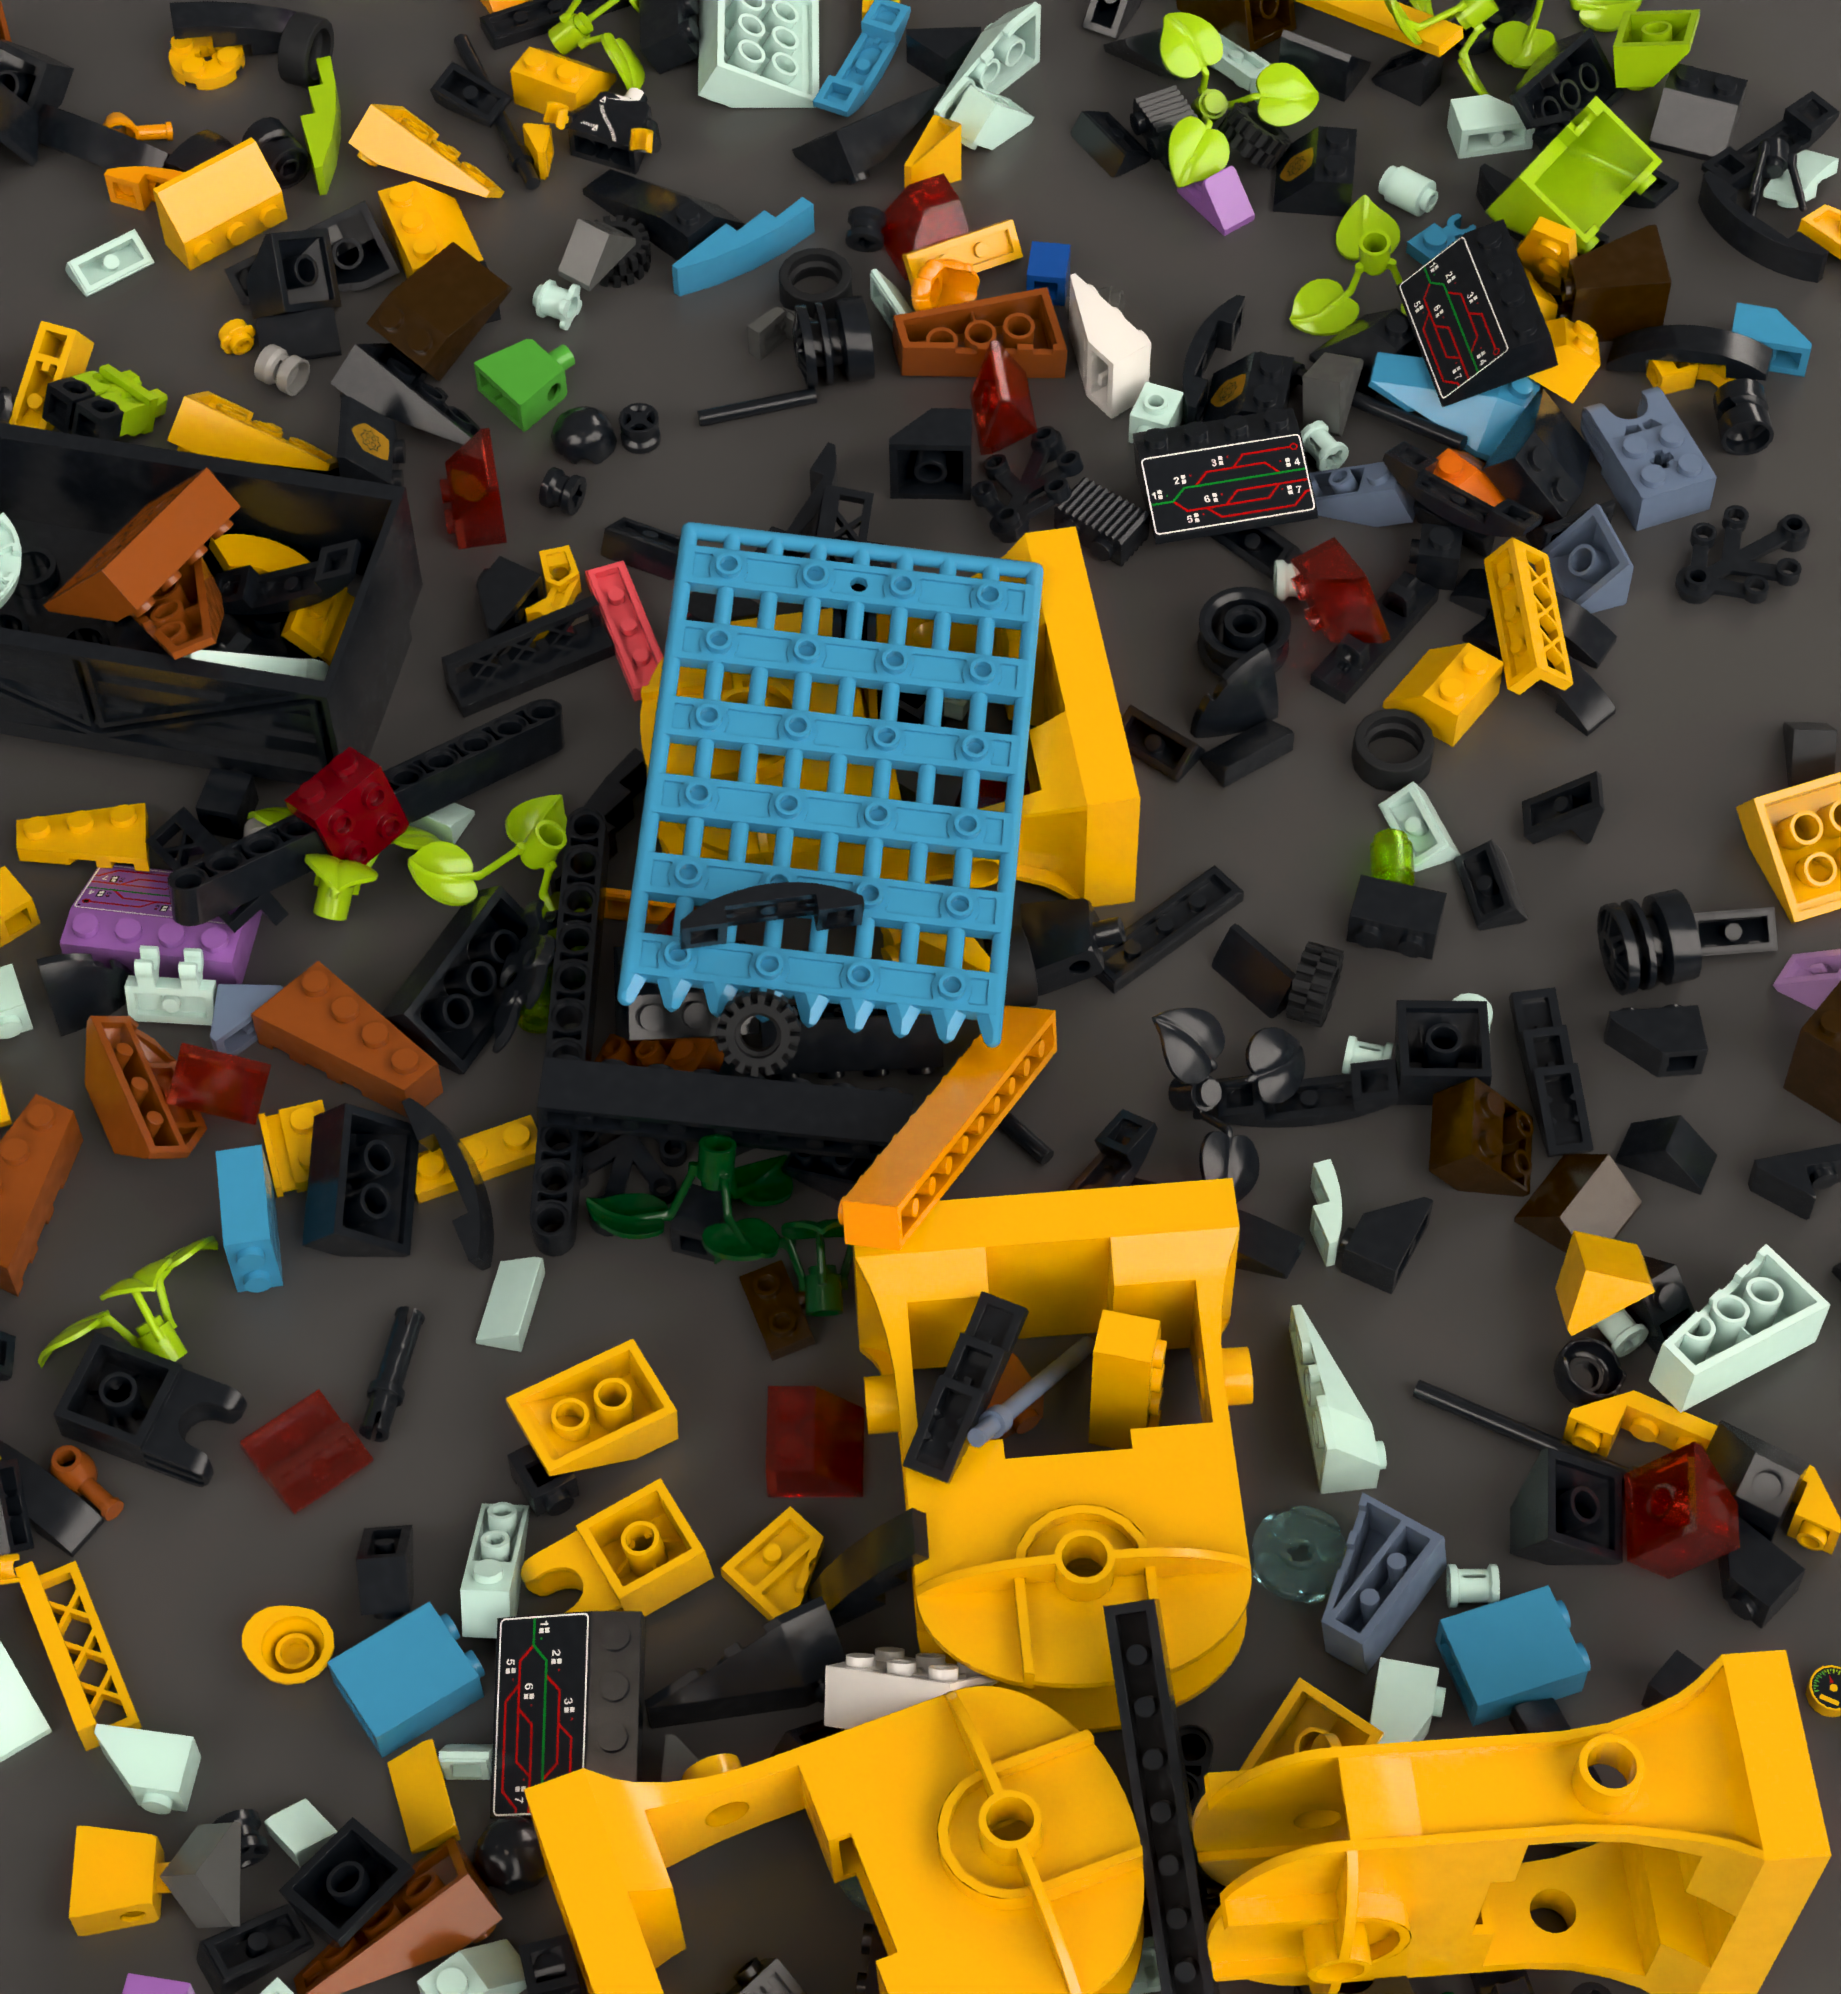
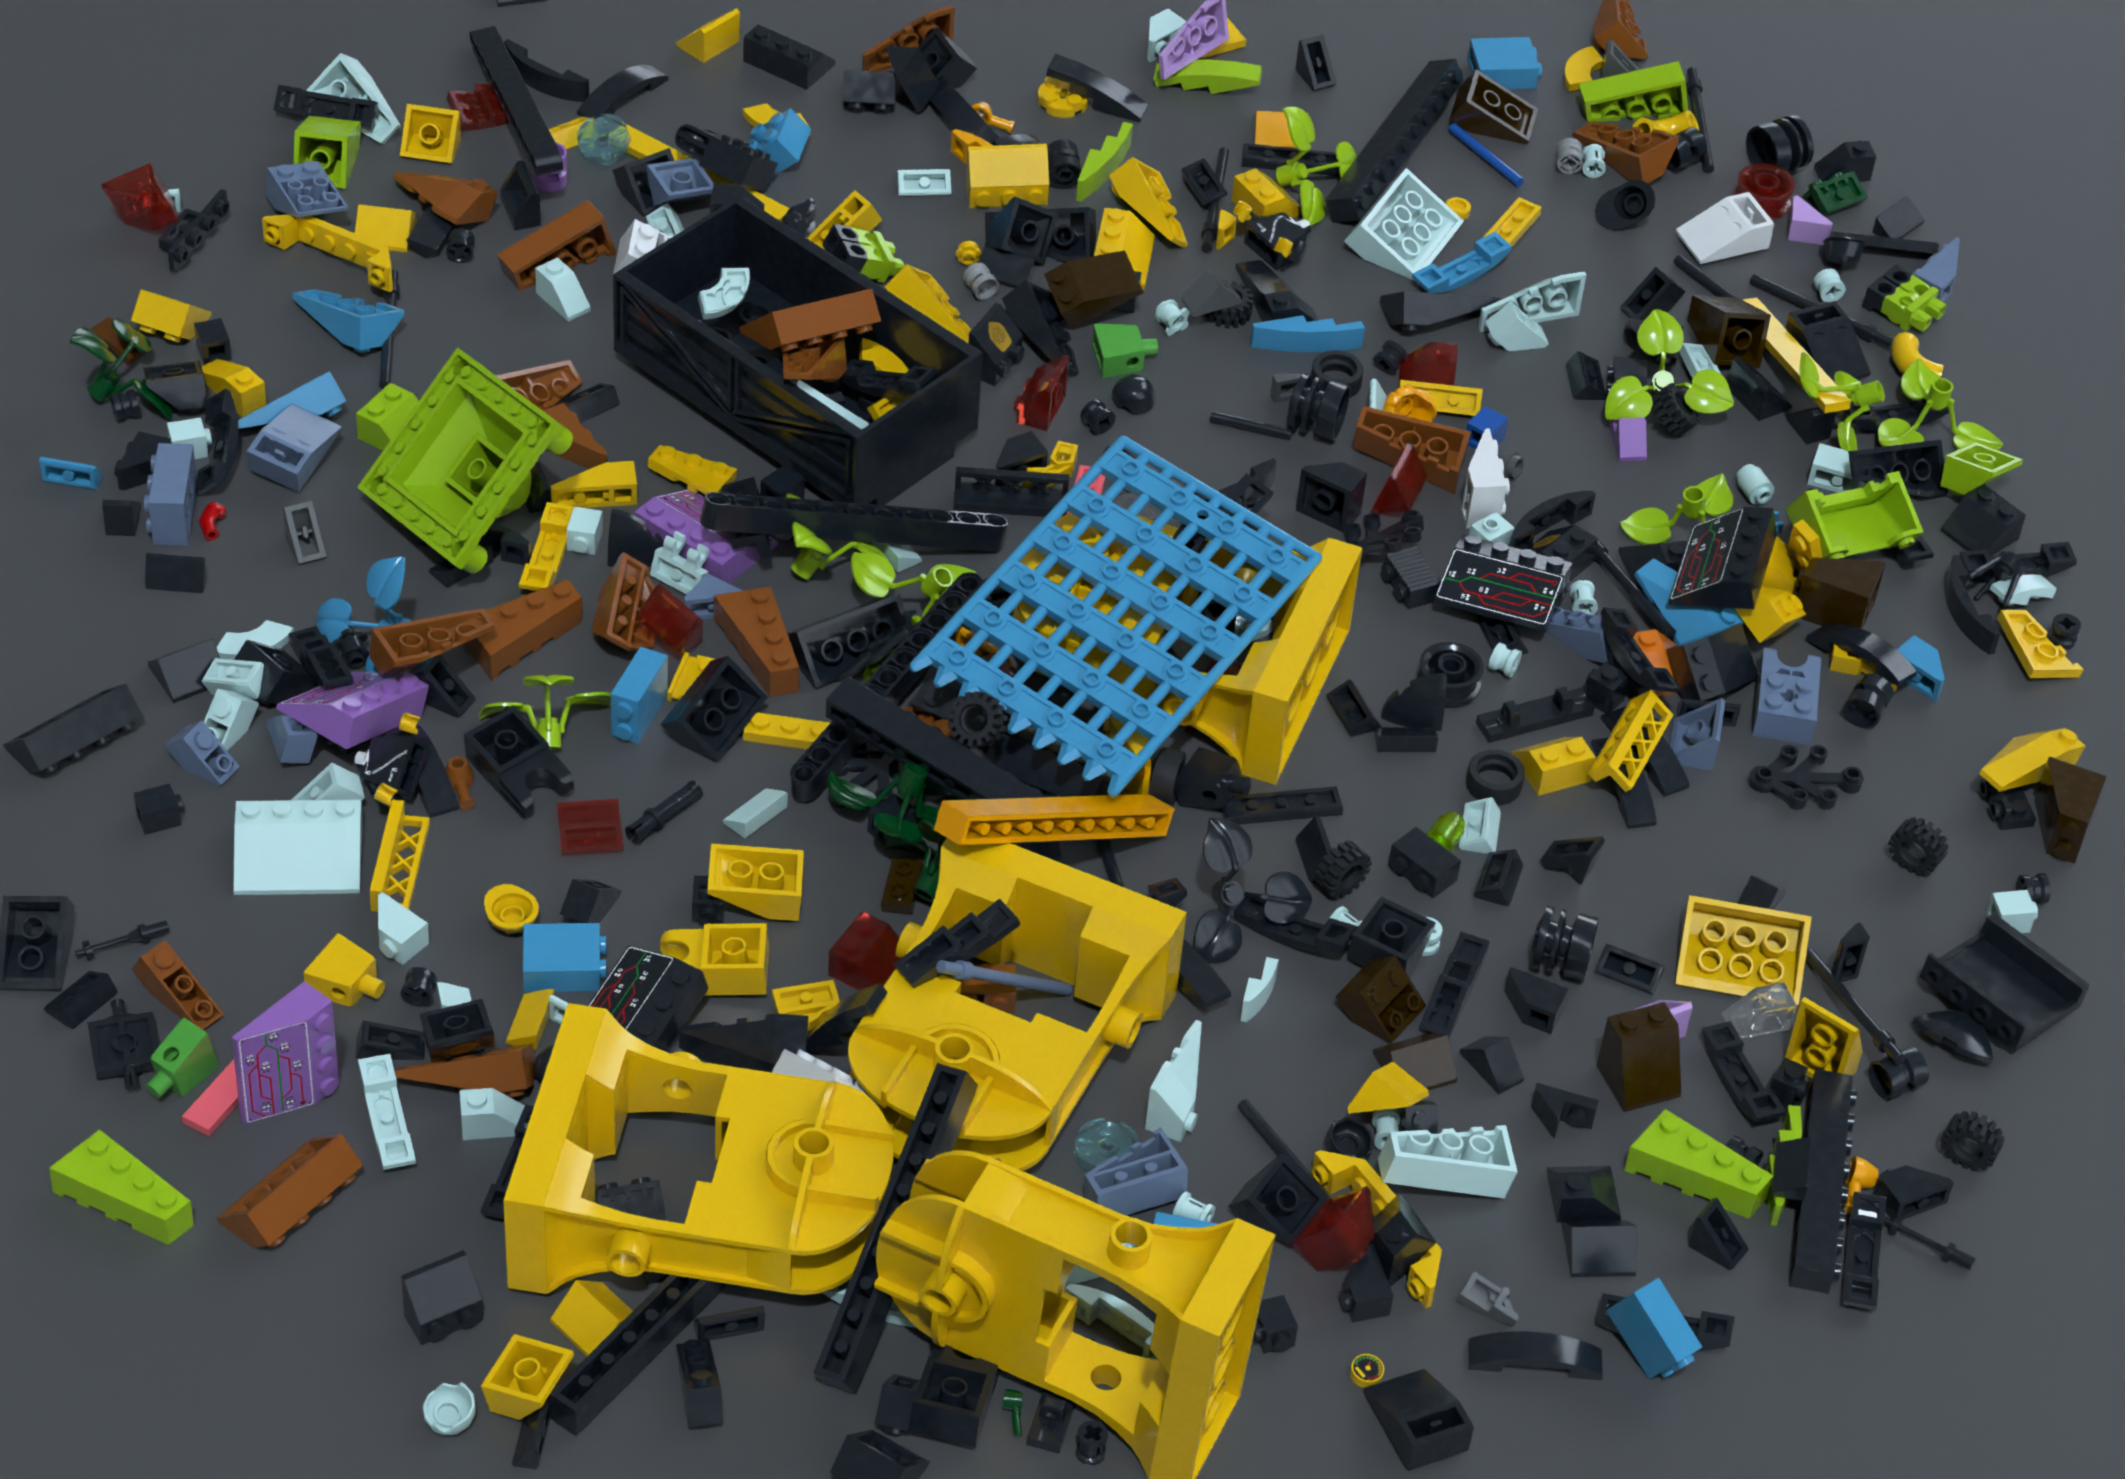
camera: 25 degrees right, 10 degrees down
(207, 1875) = (387, 990): dark grey slope -> none
(300, 44) = (1114, 106): black tyre -> none
(350, 807) = (839, 512): dark red bracket -> none
(476, 1226) = (763, 760): black slope -> none
(493, 1568) = (647, 926): light aqua slope -> none
(639, 428) = (1169, 404): black wheel -> none
(768, 902) = (1024, 650): black slope -> none
(936, 152) = (1465, 334): yellow slope -> none
(940, 50) = (1513, 277): black slope -> none
(1125, 1378) = (1065, 987): yellow wedge -> none
(1317, 173) = (1705, 450): black slope -> none
(1330, 390) = (1609, 567): dark grey slope -> none
(1337, 595) = (1518, 673): clear red slope -> none
(1384, 1243) = (1283, 1021): black slope -> none

